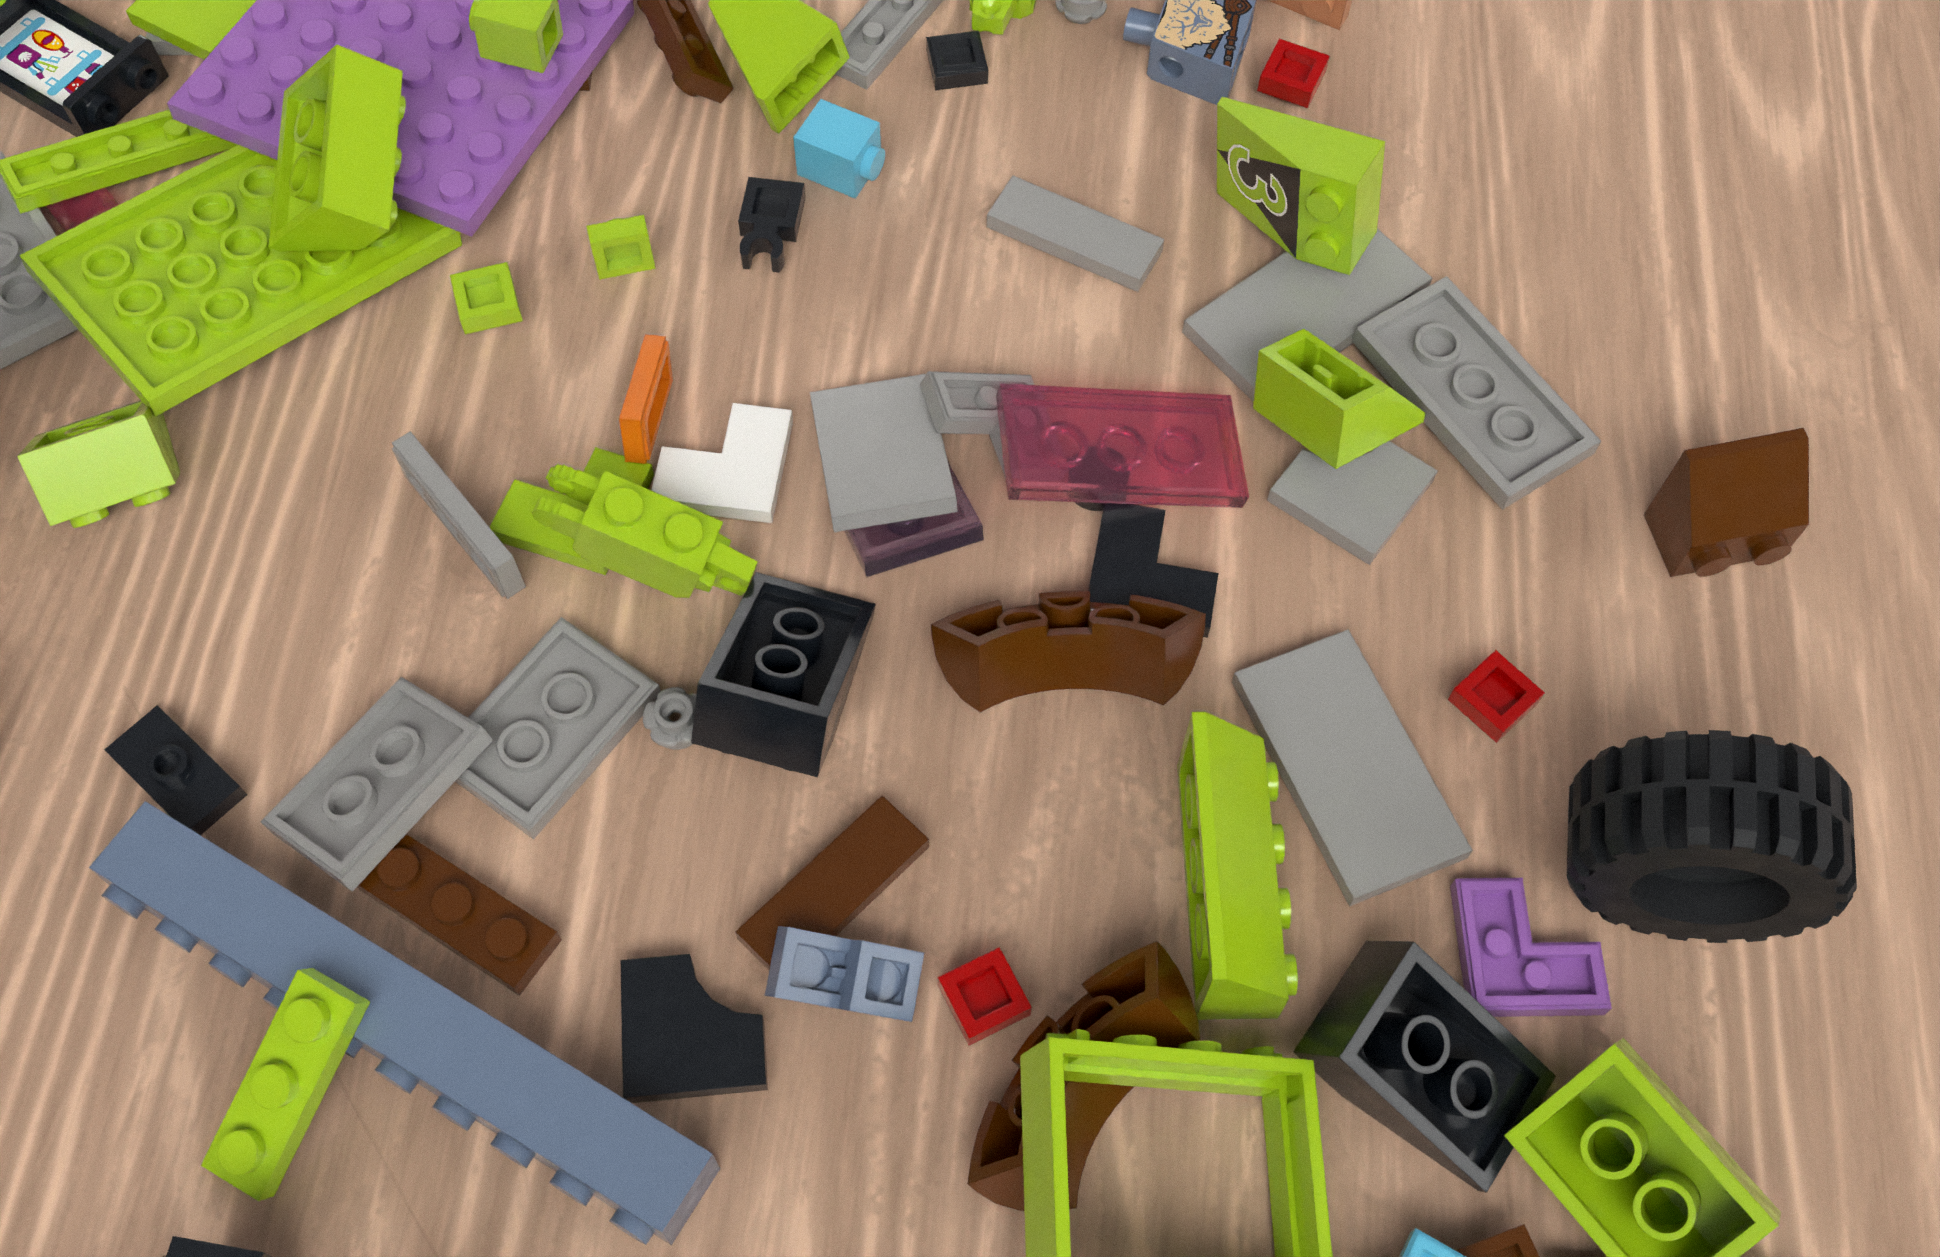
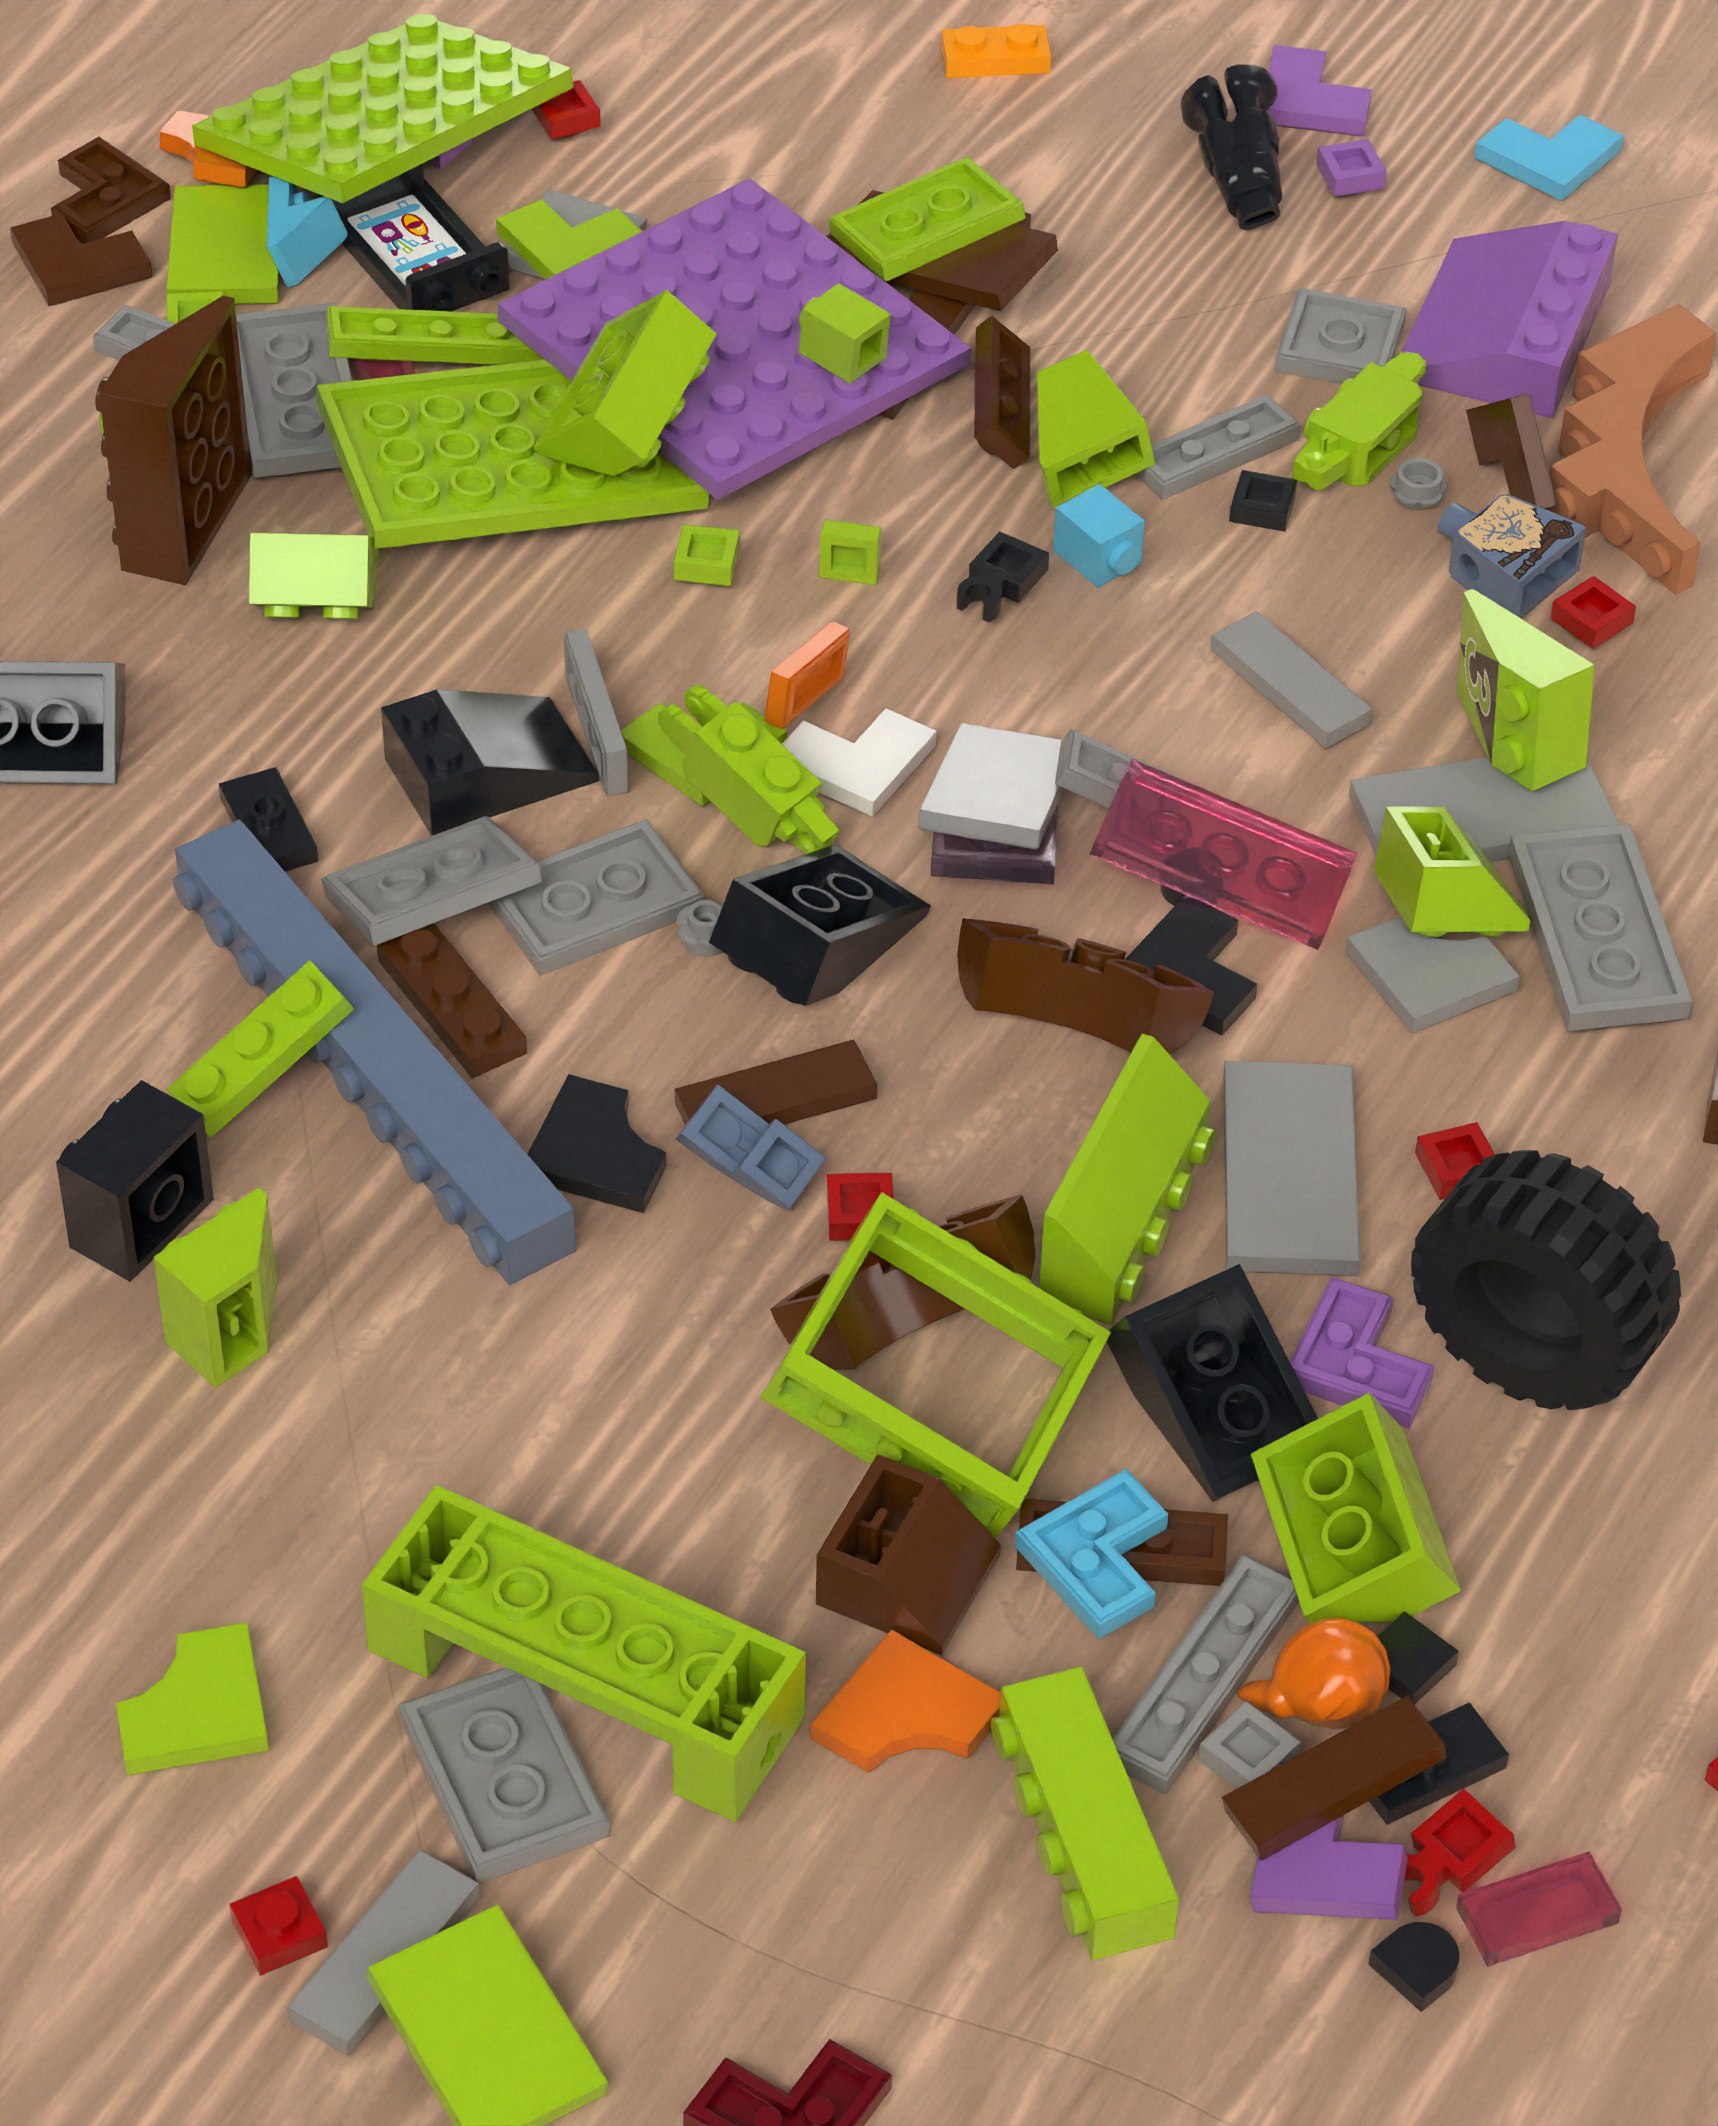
camera: 25 degrees right, 15 degrees down
(364, 607) = (480, 754): none -> black slope

